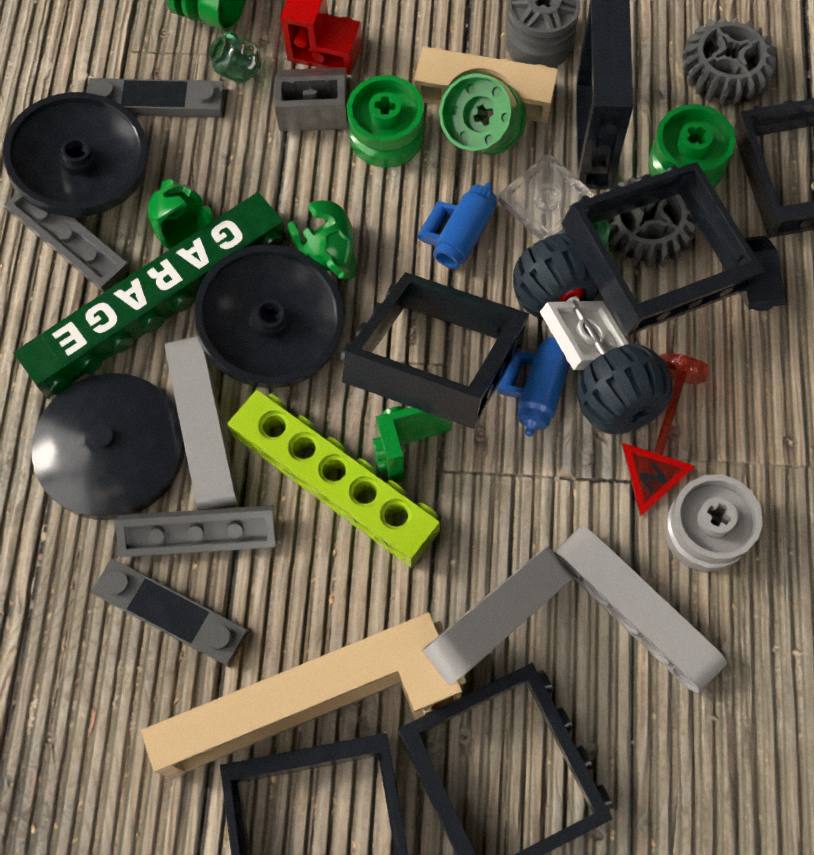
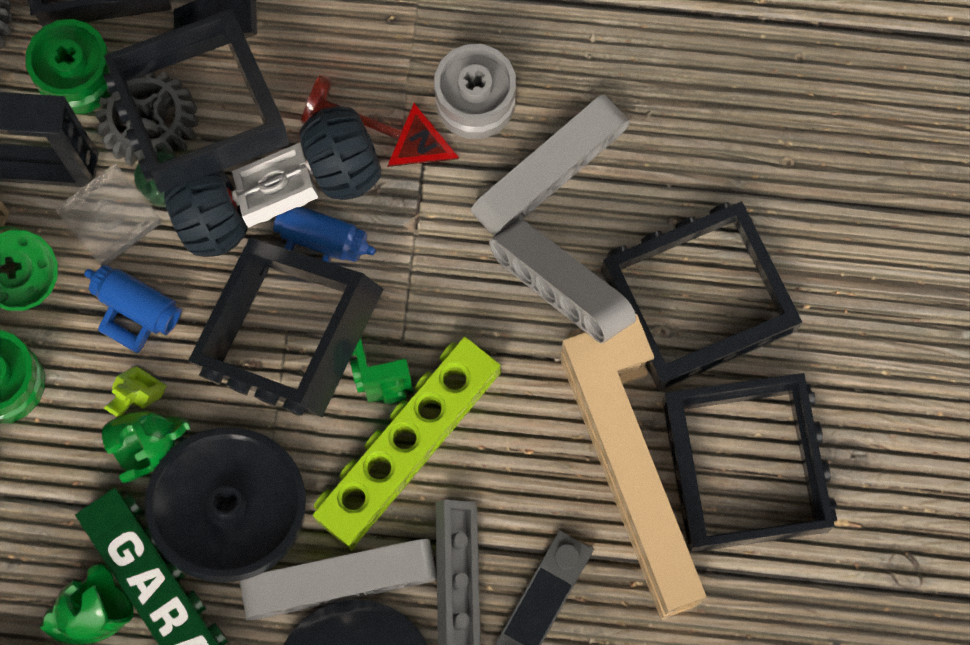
camera: 90 degrees left, 5 degrees up
(380, 232) = (134, 388): none -> lime plate

